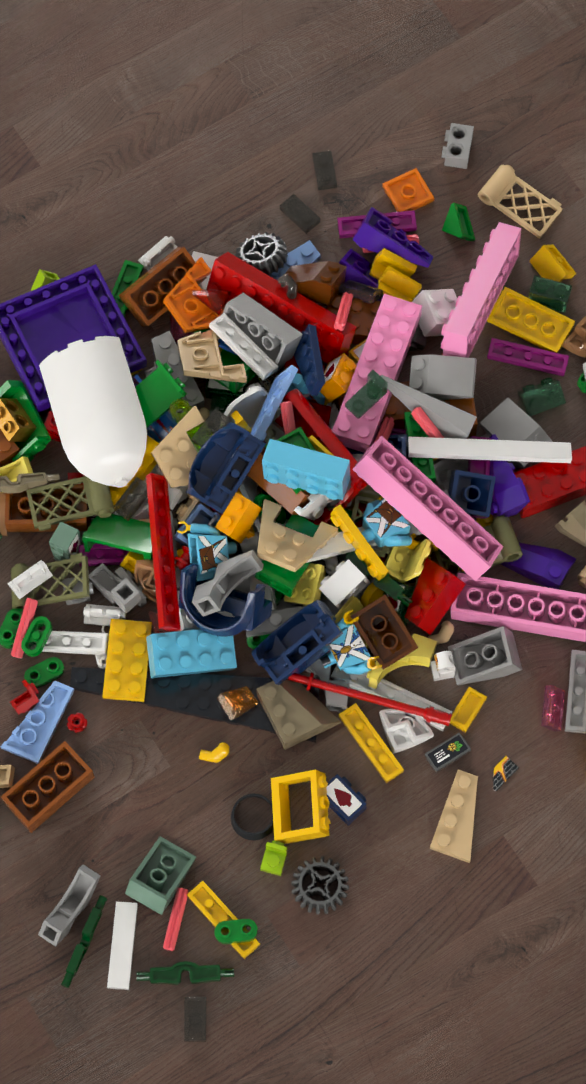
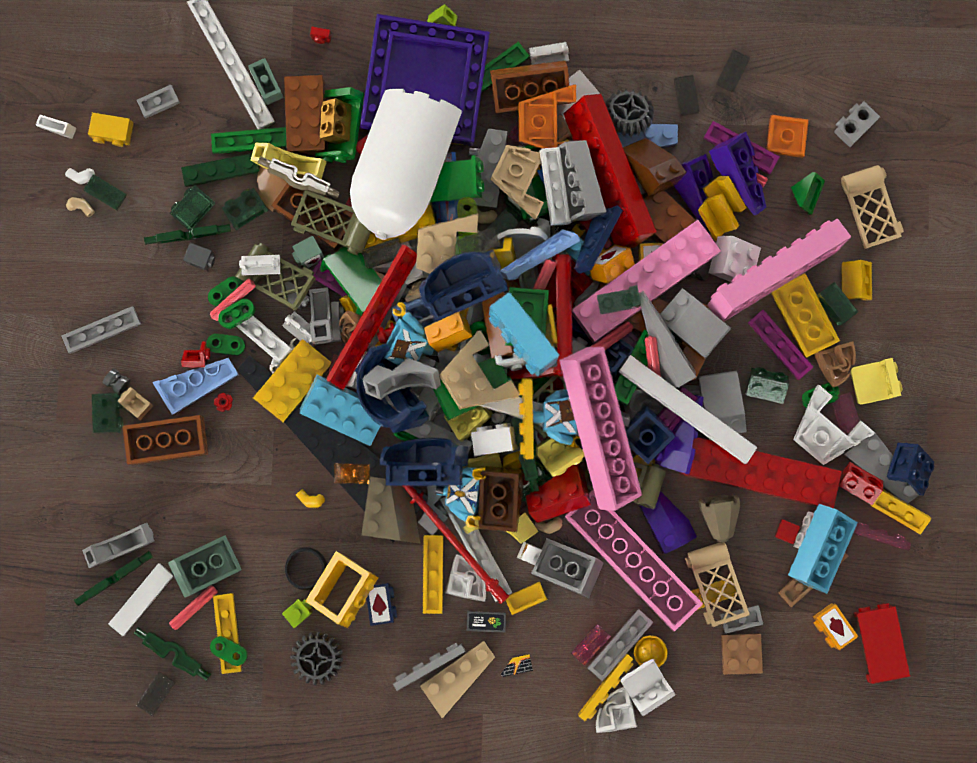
camera: 30 degrees right, 15 degrees up
(213, 298) = (560, 127): clear red slope -> none
(287, 280) = (628, 153): clear smoke arm -> none
(343, 311) = (655, 211): coral axle -> none
(361, 291) = (683, 201): clear smoke plate -> none
(428, 815) = (421, 670): none -> light grey plate

